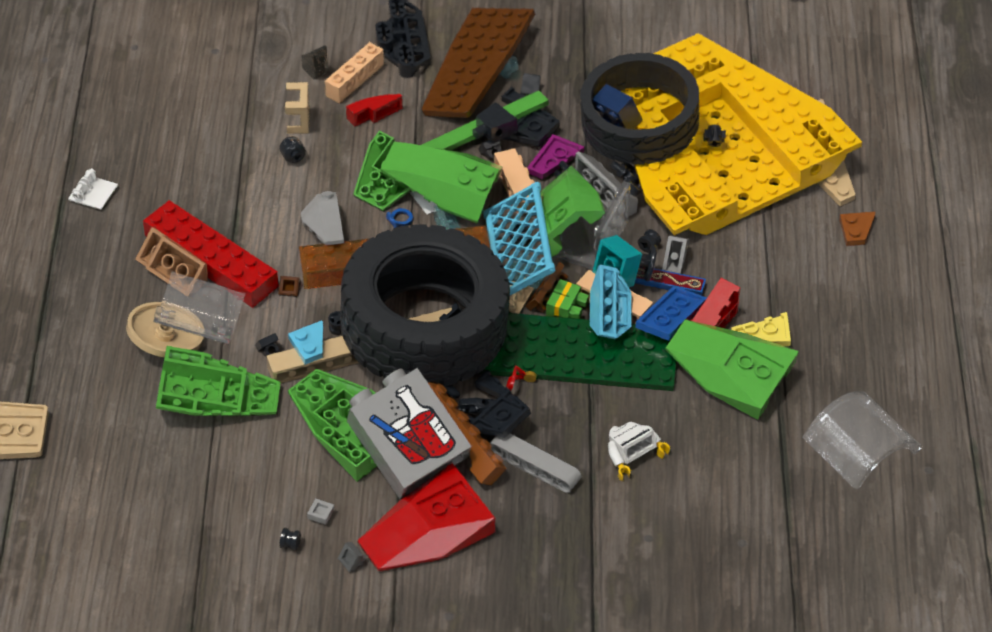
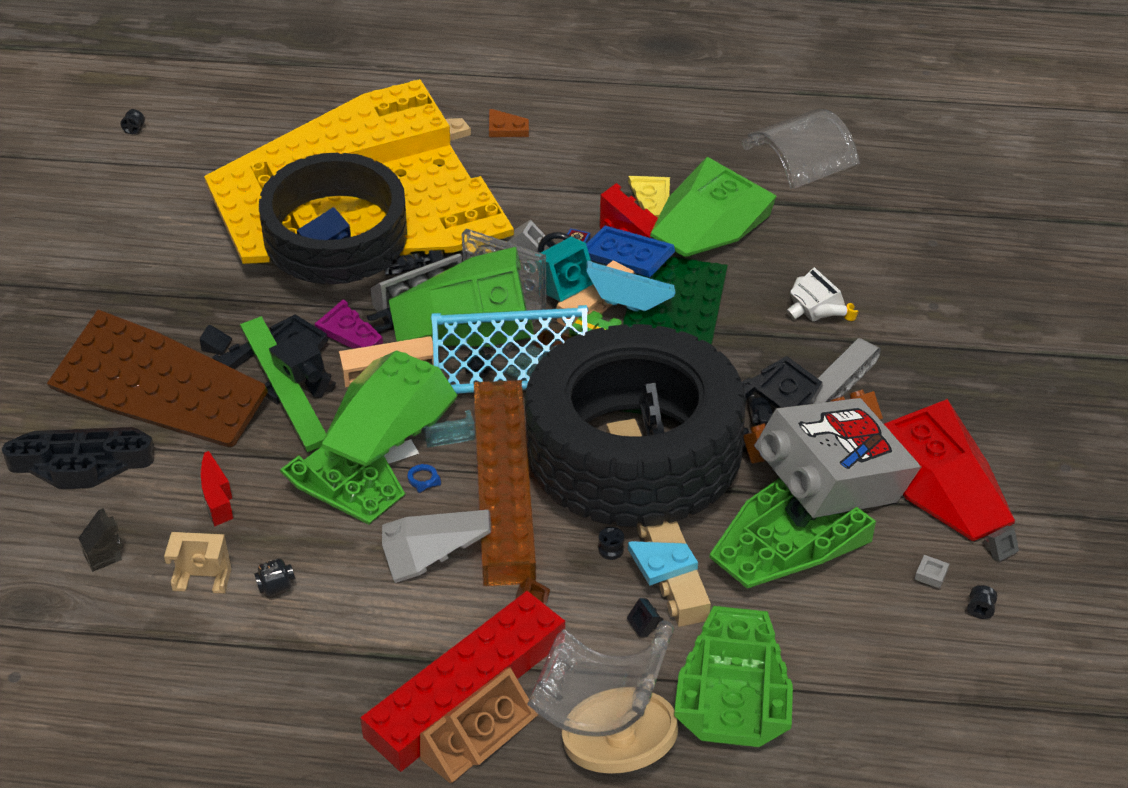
camera: 85 degrees left, 5 degrees down
(354, 72) = (136, 504): light nougat brick -> none

